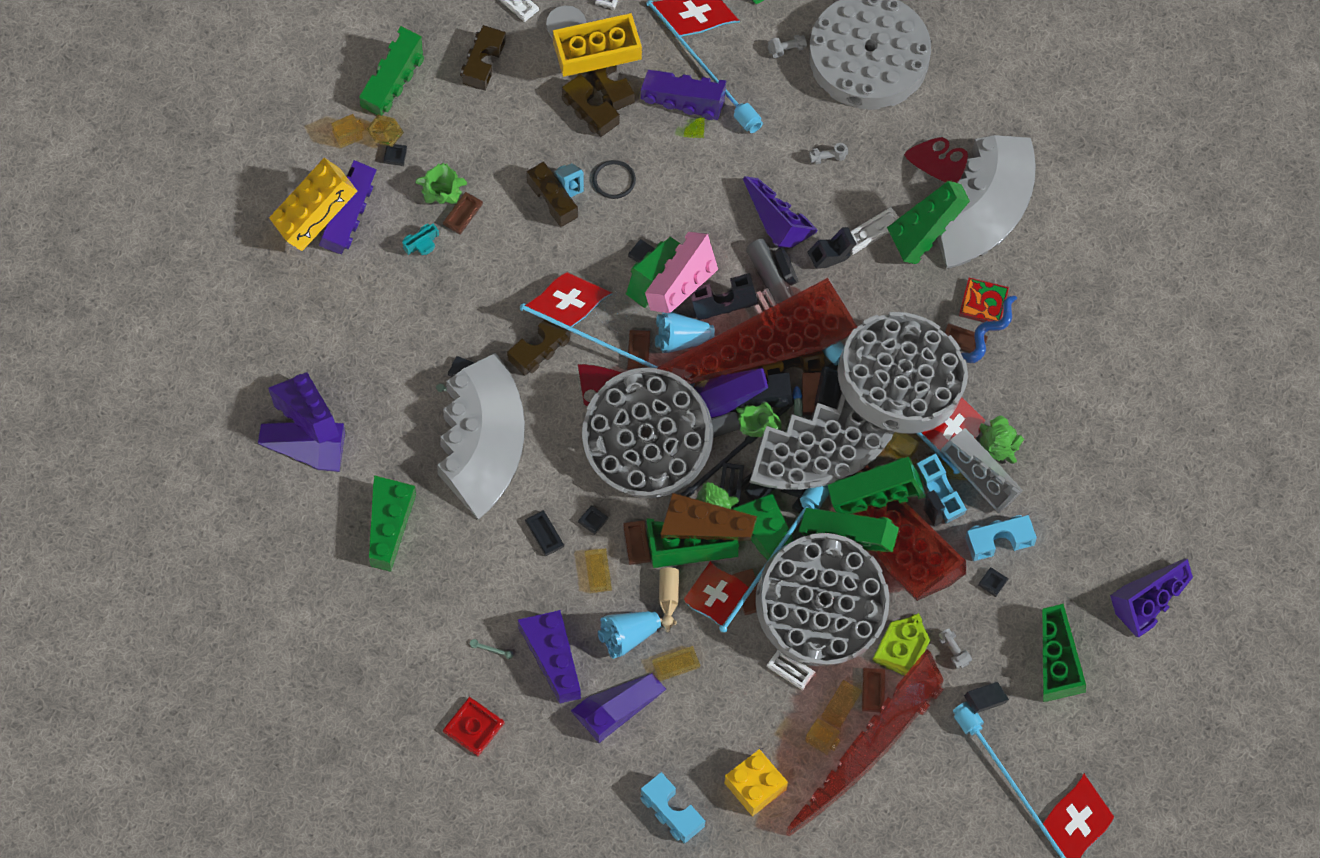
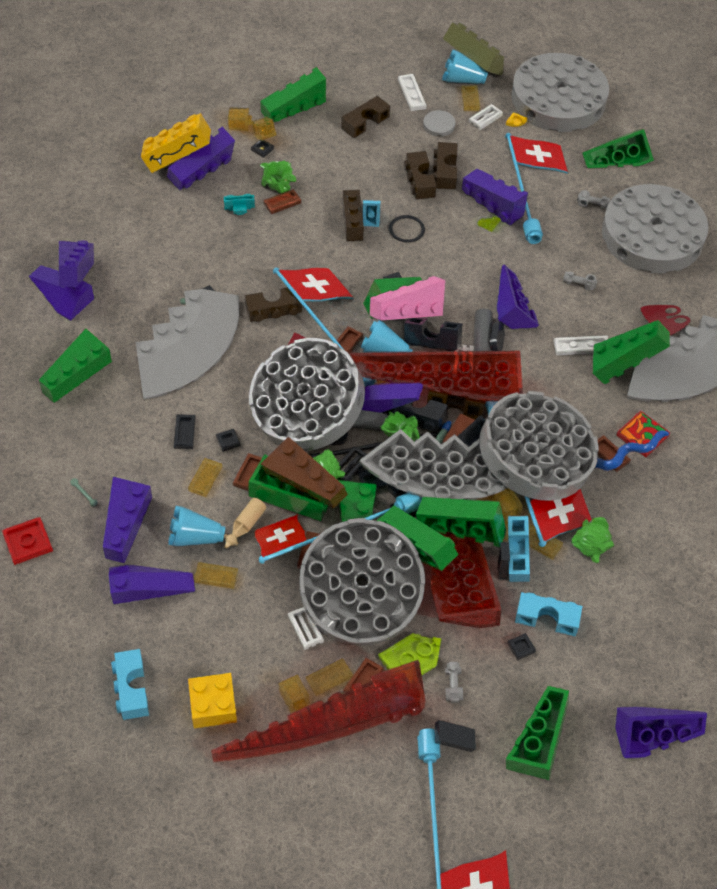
camera: 30 degrees right, 10 degrees down
(597, 44) = (447, 134): yellow brick -> none
(832, 251) = (538, 343): black brick -> none
(981, 470) = (562, 552): light grey wedge -> none

